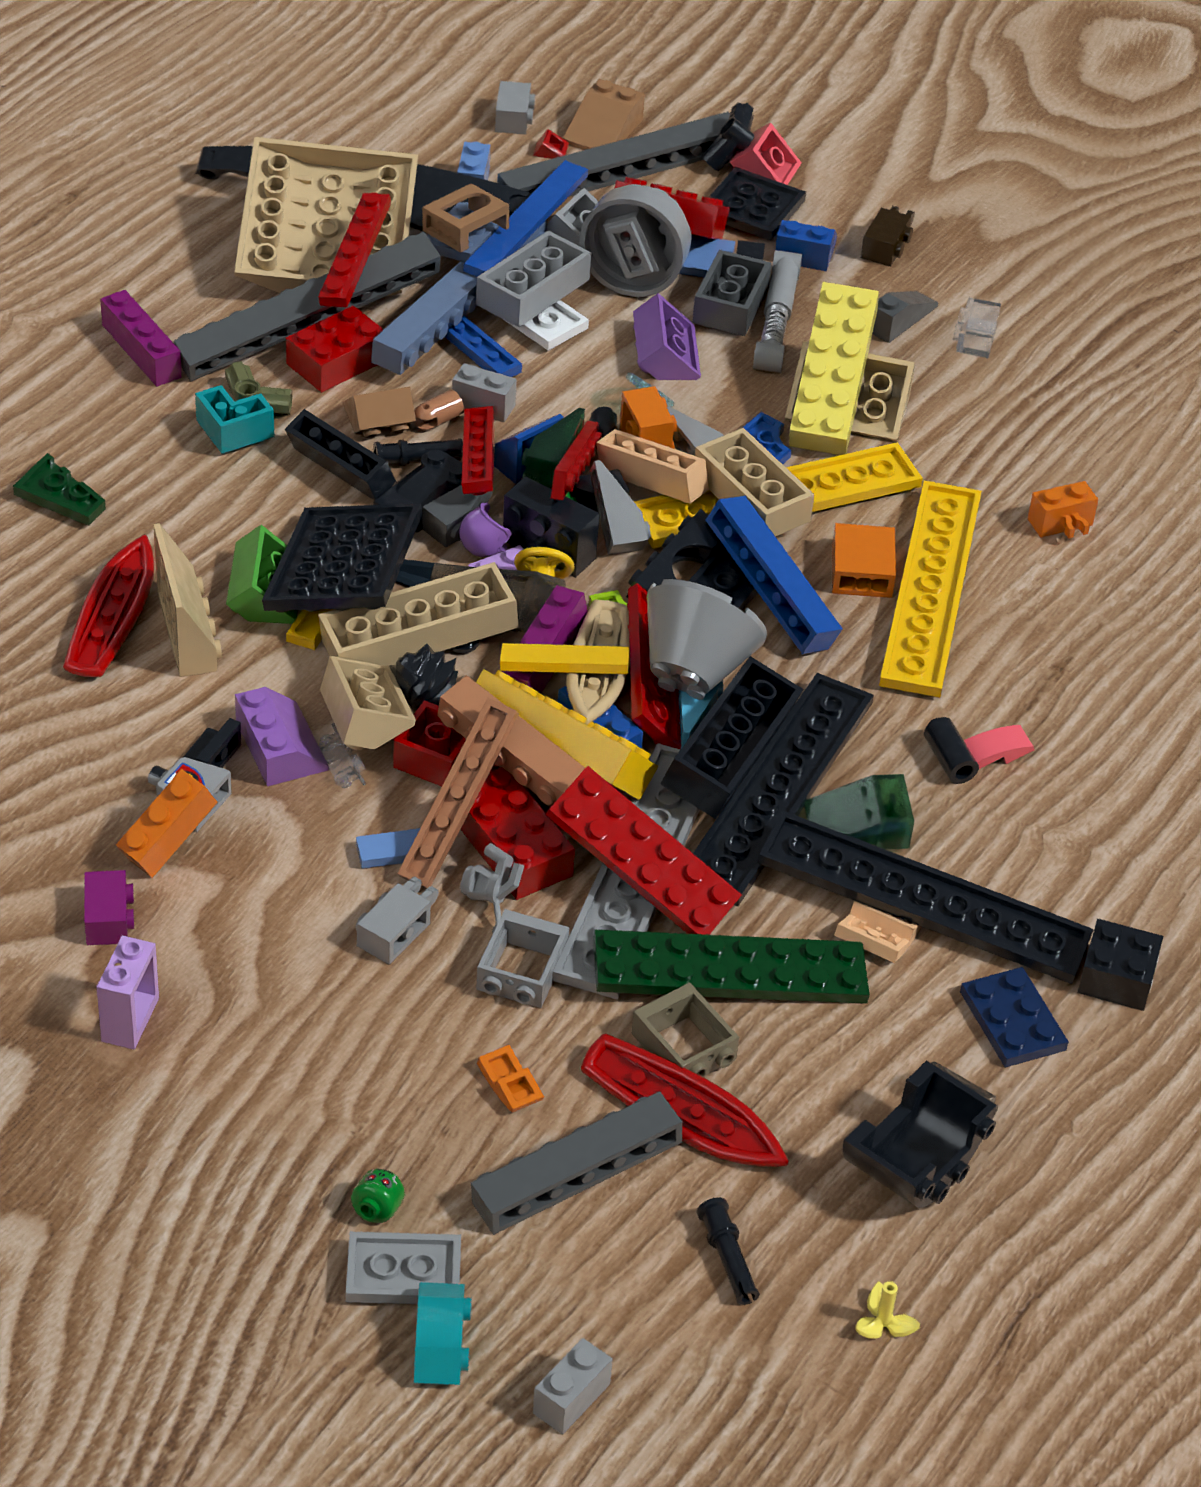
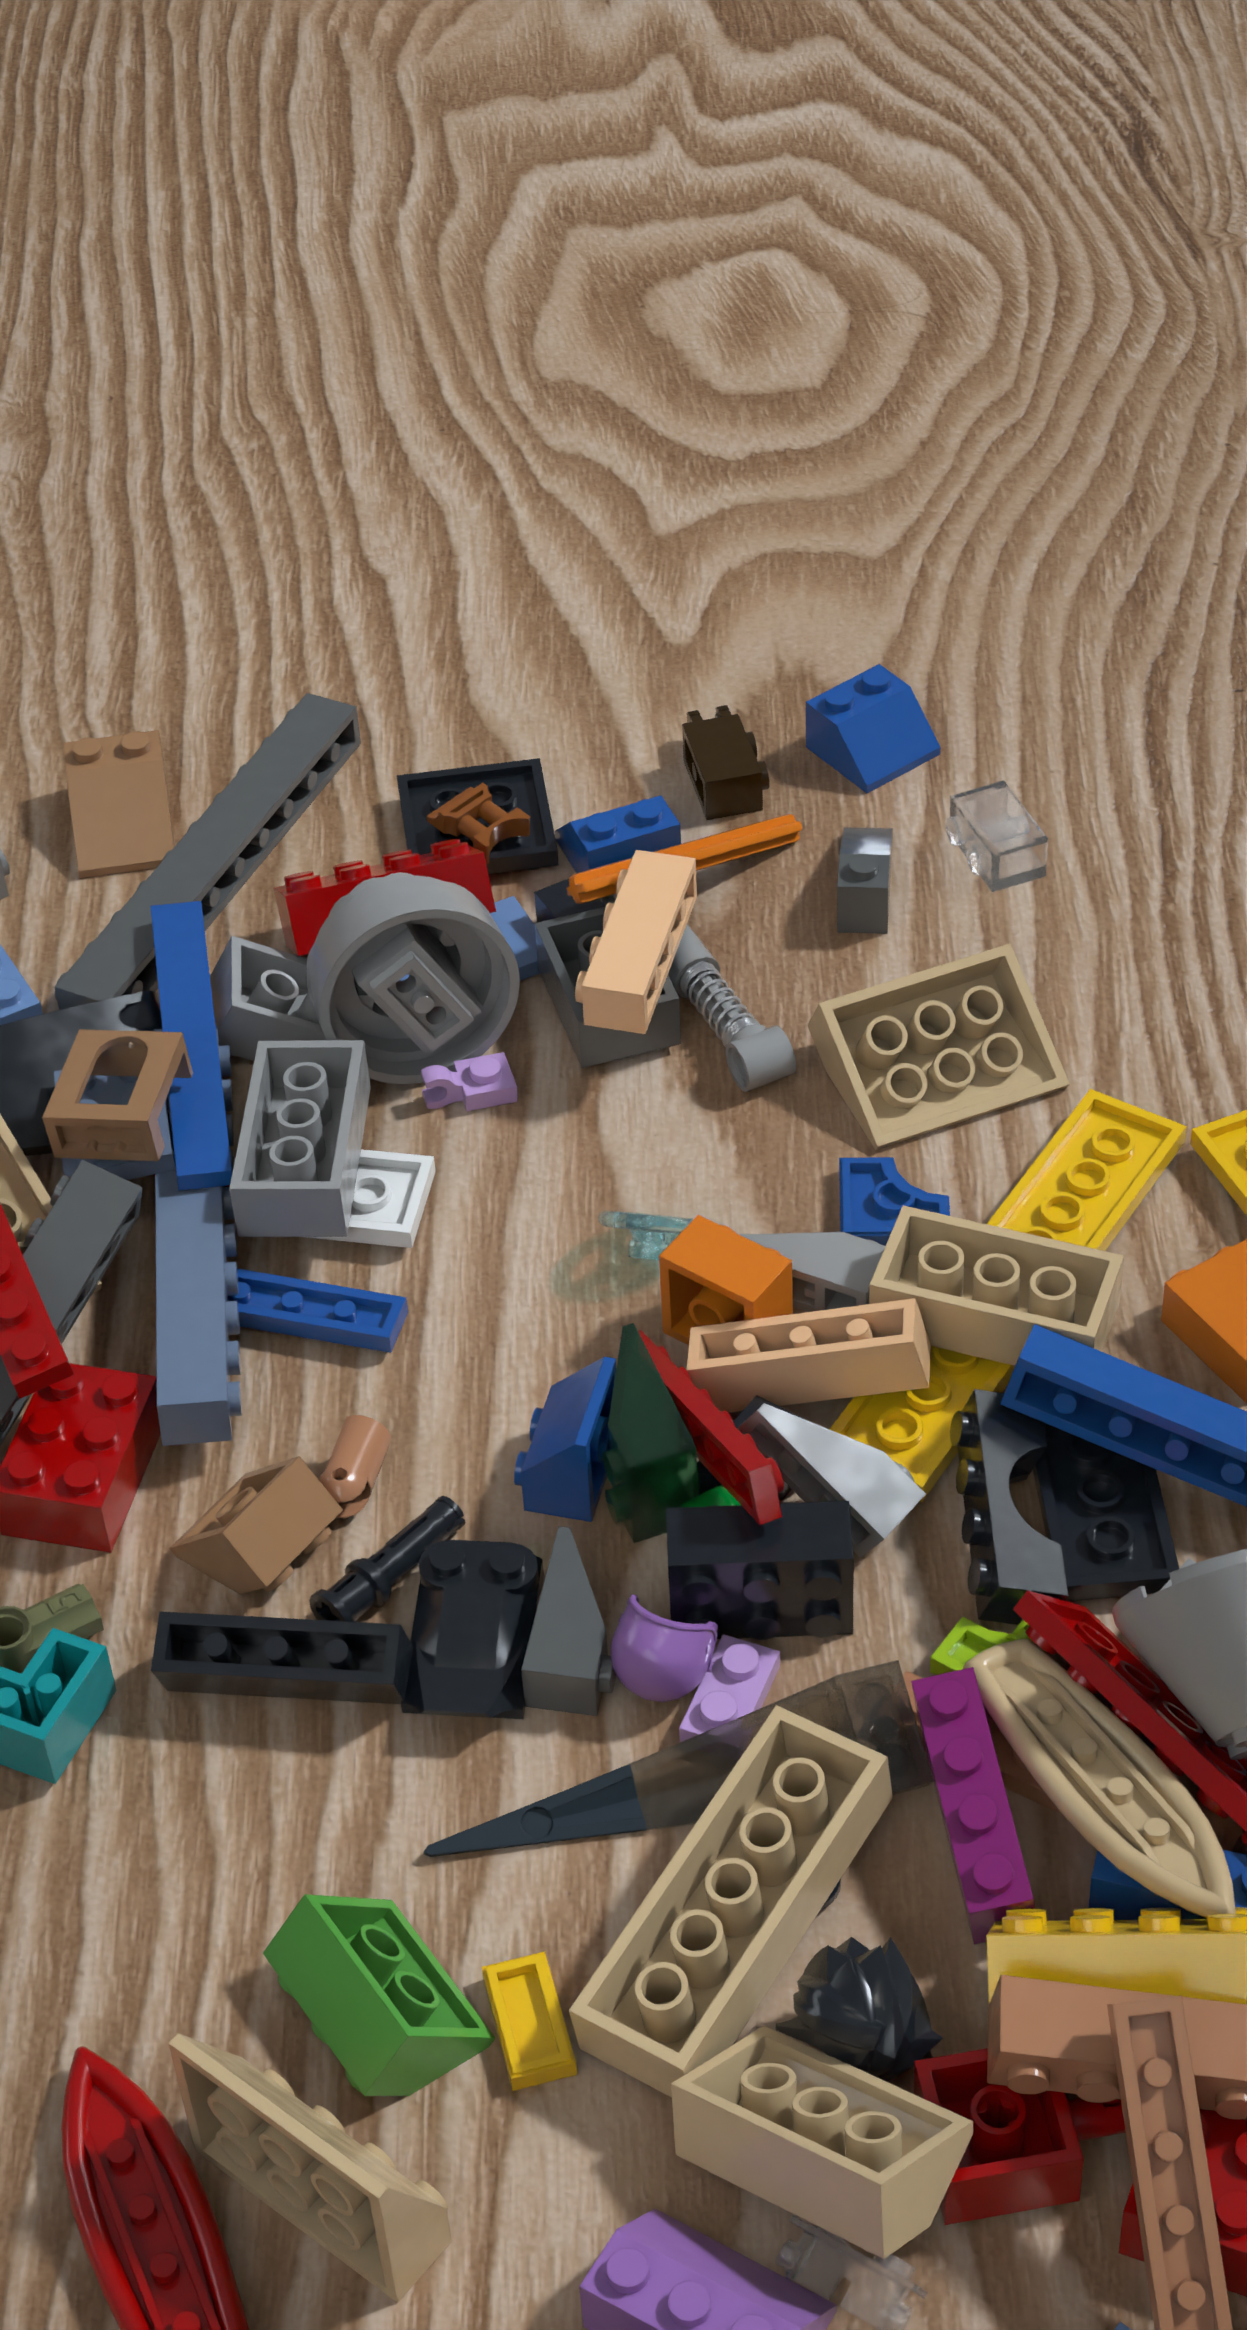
camera: 30 degrees left, 0 degrees up
(343, 558) = (498, 1865): black plate -> none
(478, 450) = (513, 1504): red plate -> none
(485, 388) = (401, 1384): light grey brick -> none
(525, 562) = (818, 1651): yellow piece -> none
(550, 146) = (72, 895): red slope -> none
(564, 658) = (1073, 1818): yellow tile -> none
(607, 420) = (638, 1310): black cone -> none
(629, 300) = (475, 1081): none -> lavender plate
(665, 341) = (582, 1126): medium lavender slope -> none
(733, 137) = (364, 728): black piece -> none
(749, 275) = (637, 942): none -> light nougat brick
(751, 193) = (464, 810): none -> dark orange piece
(768, 156) = (422, 732): coral slope -> none
(818, 260) = (708, 852): none -> orange axle
(833, 368) = (915, 1023): light yellow brick -> none
(972, 255) = (870, 729): none -> blue slope

